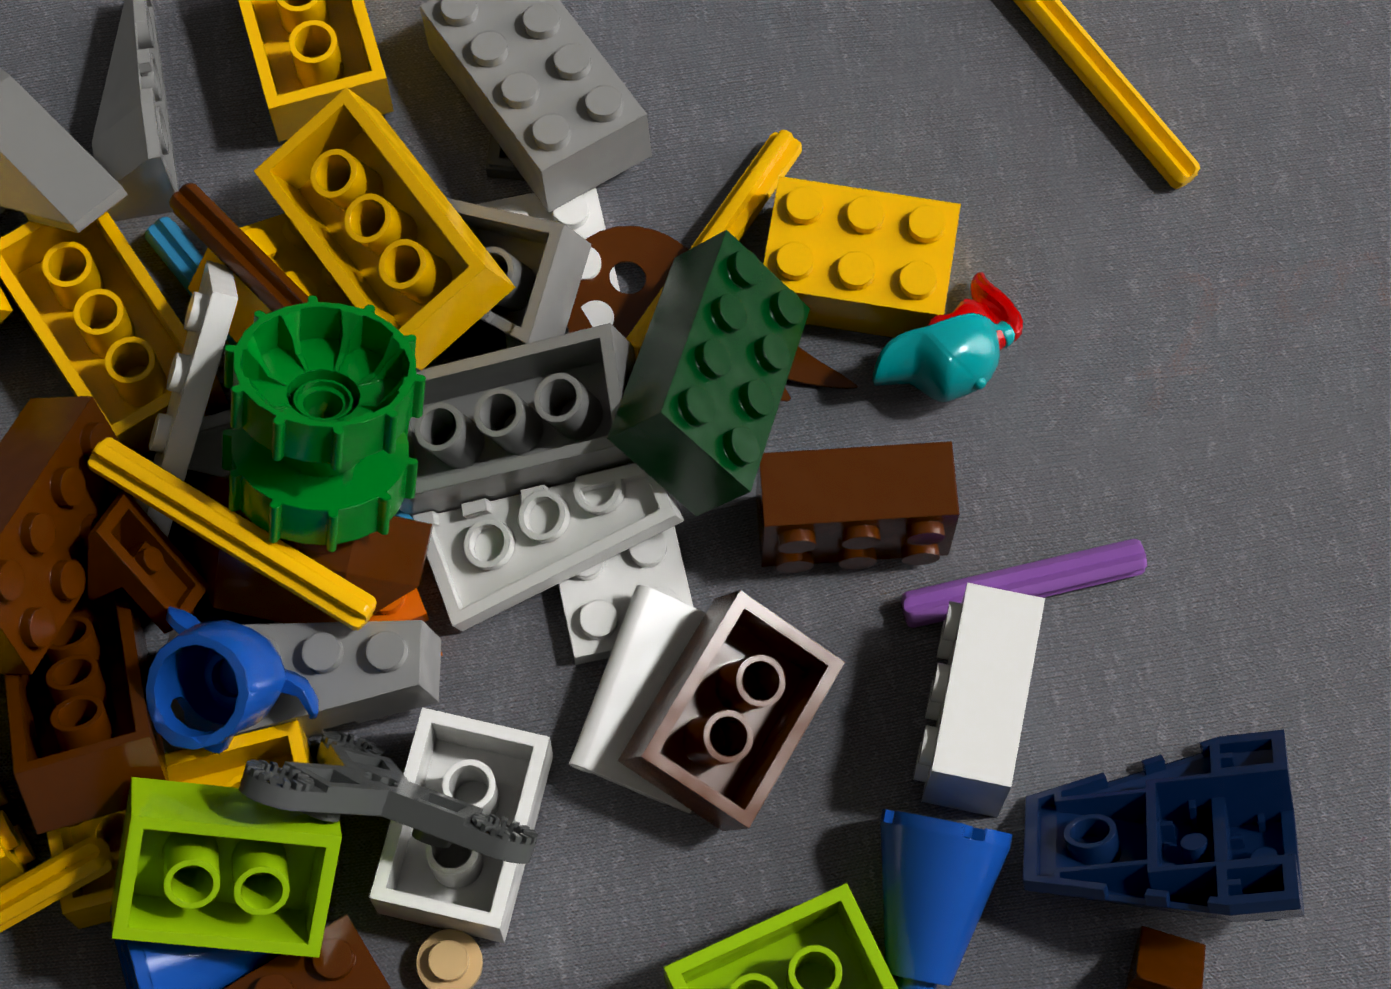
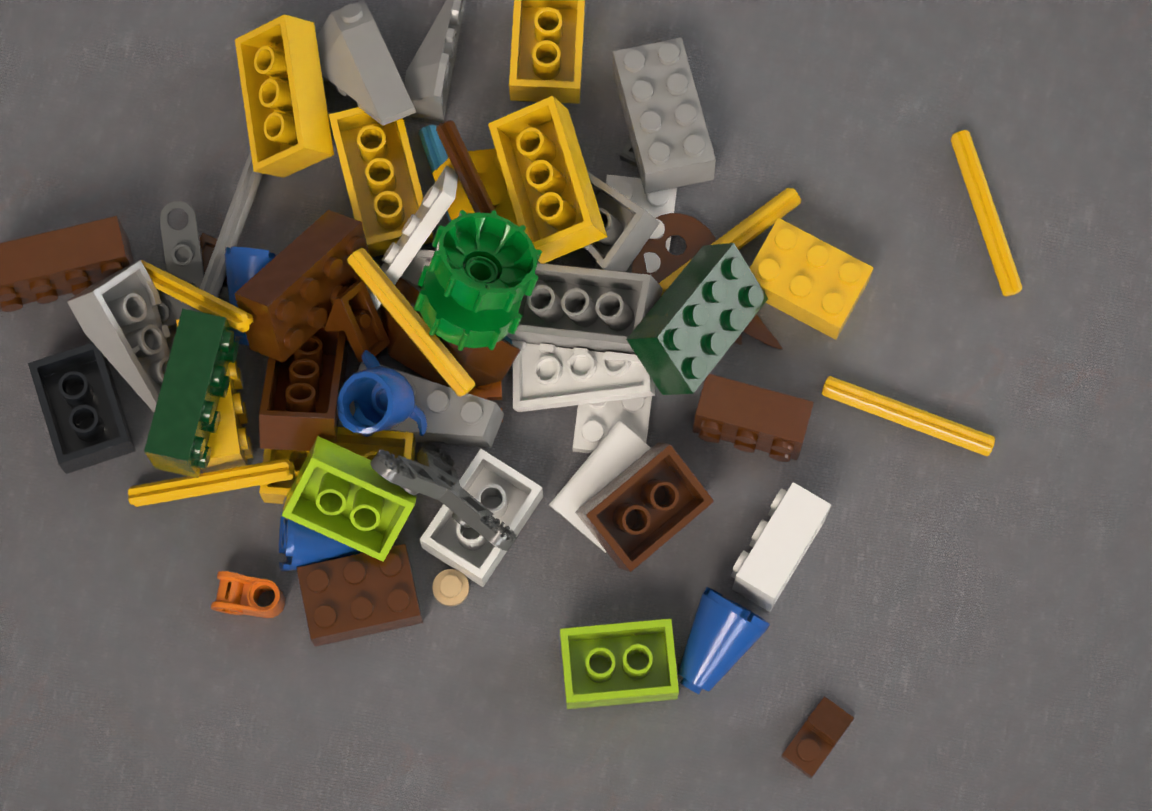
camera: 20 degrees right, 5 degrees up
(955, 349) = (844, 349): teal hair -> none
(1036, 578) = (836, 490): medium lavender axle -> none
(1100, 423) = (908, 416): none -> yellow axle
(1178, 837) = (860, 656): dark blue wedge -> none

